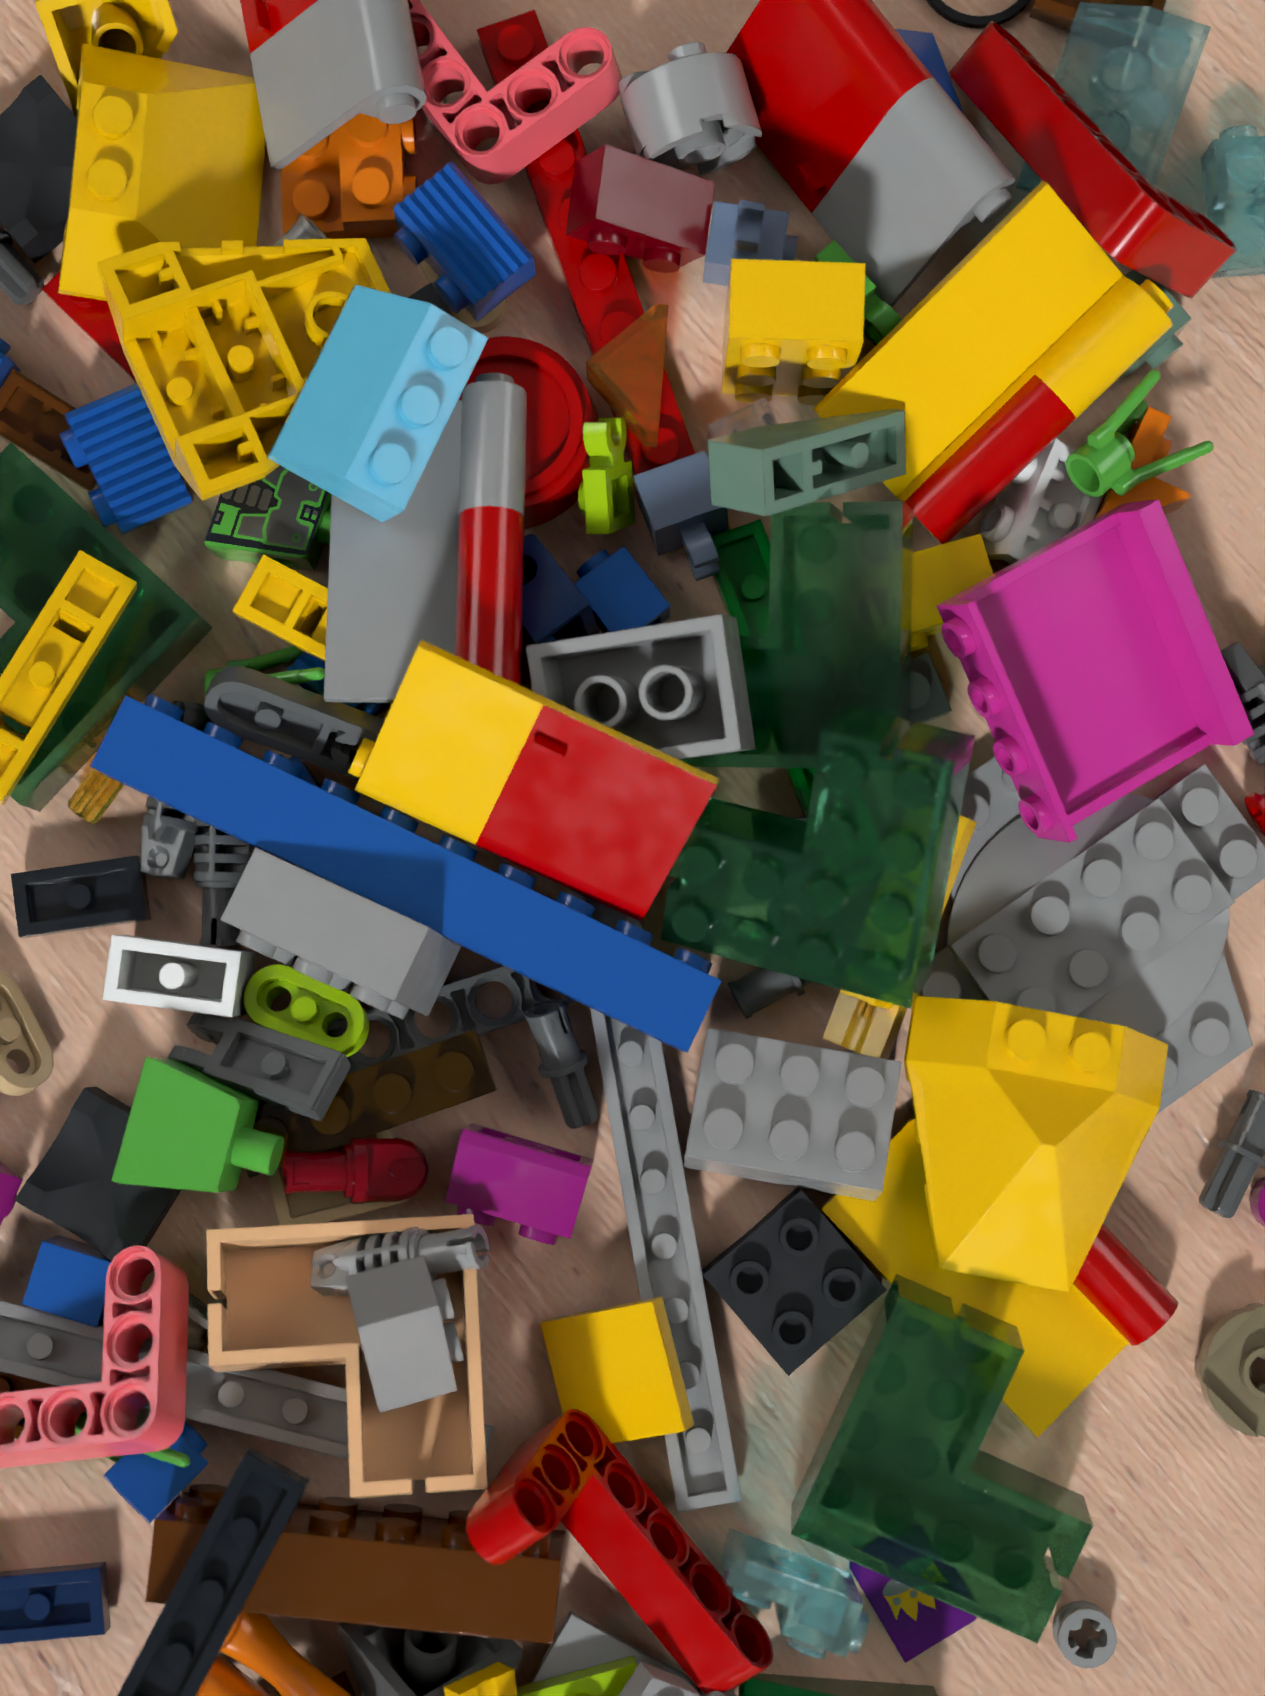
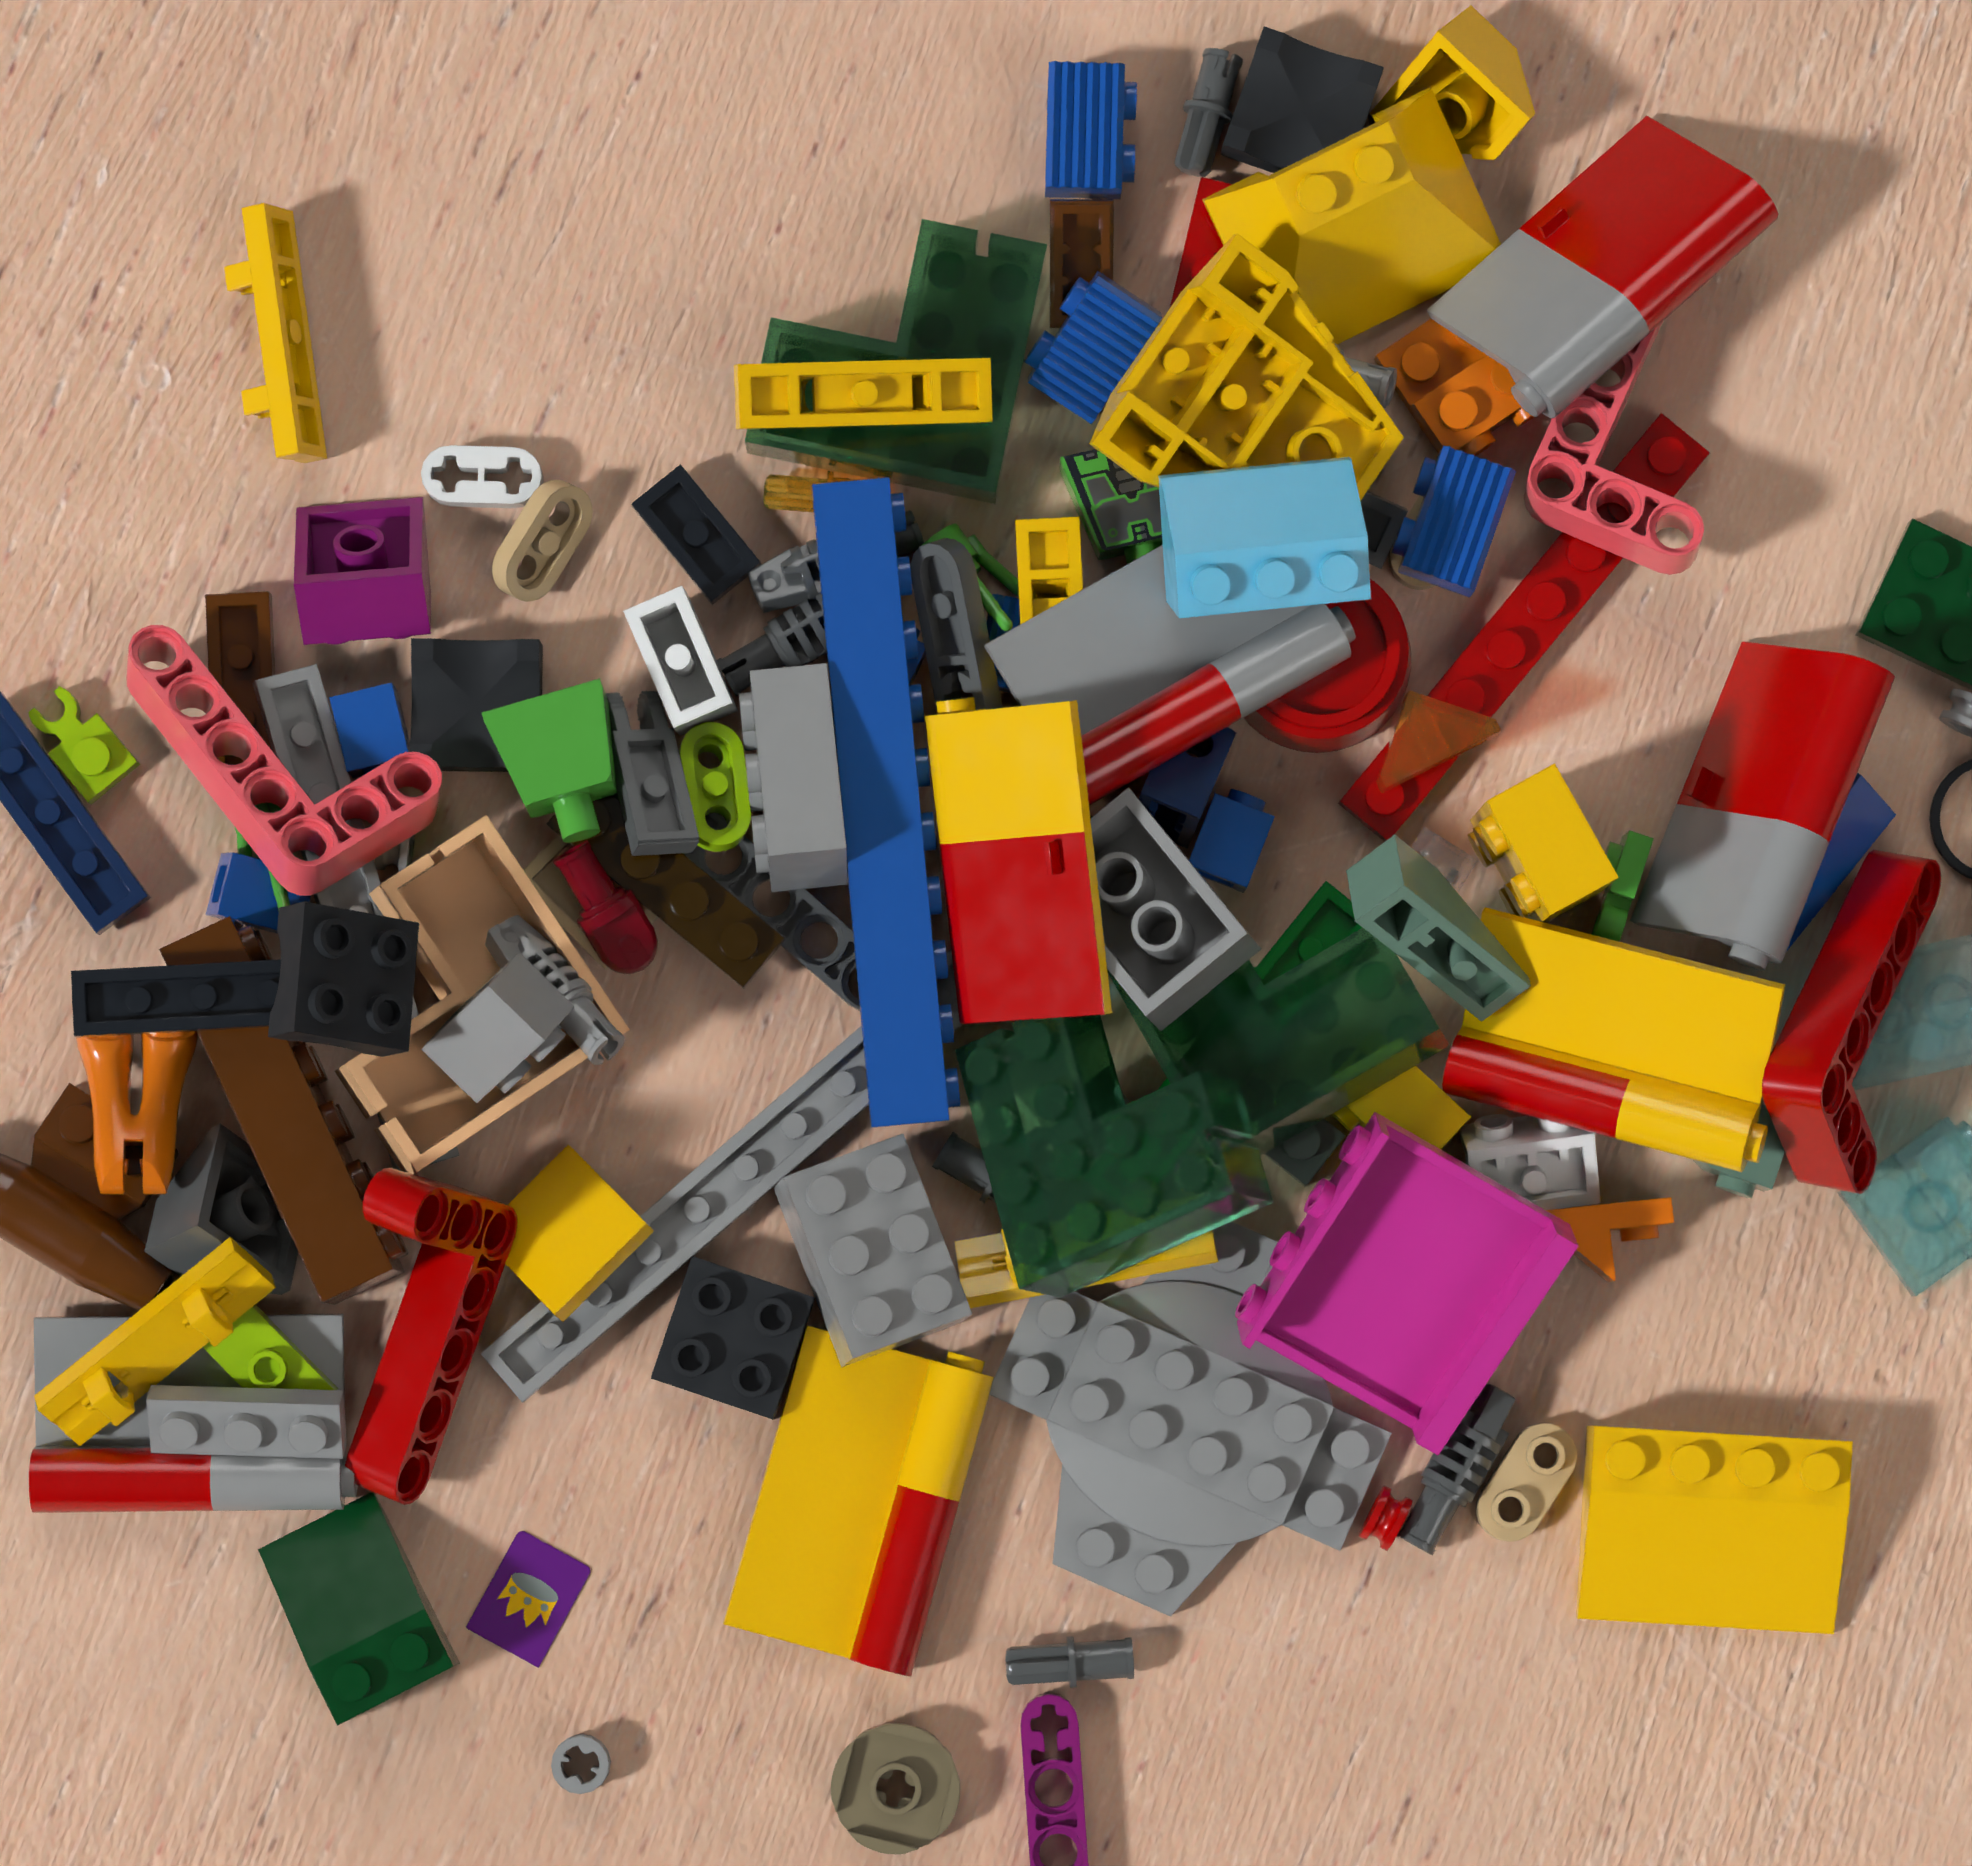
camera: 55 degrees right, 0 degrees up
(271, 1457) = (345, 979): none -> black brick
(518, 1182) = (677, 1054): magenta slope -> none
(563, 1062) = (801, 1030): dark grey axle -> none
(607, 485) = (1322, 771): lime plate -> none
(639, 209) = (1578, 654): dark red brick -> none
(680, 511) = (1334, 844): sand blue brick -> none
(691, 110) = (1690, 647): light grey brick -> none
(745, 233) = (1608, 767): sand blue brick -> none
(811, 1599) = (474, 1509): clear light blue plate -> none
(905, 1475) = (613, 1543): clear green piece -> none
(1025, 1131) = (976, 1456): yellow wedge -> none
(1108, 454) = (1599, 1183): bright green plant -> none

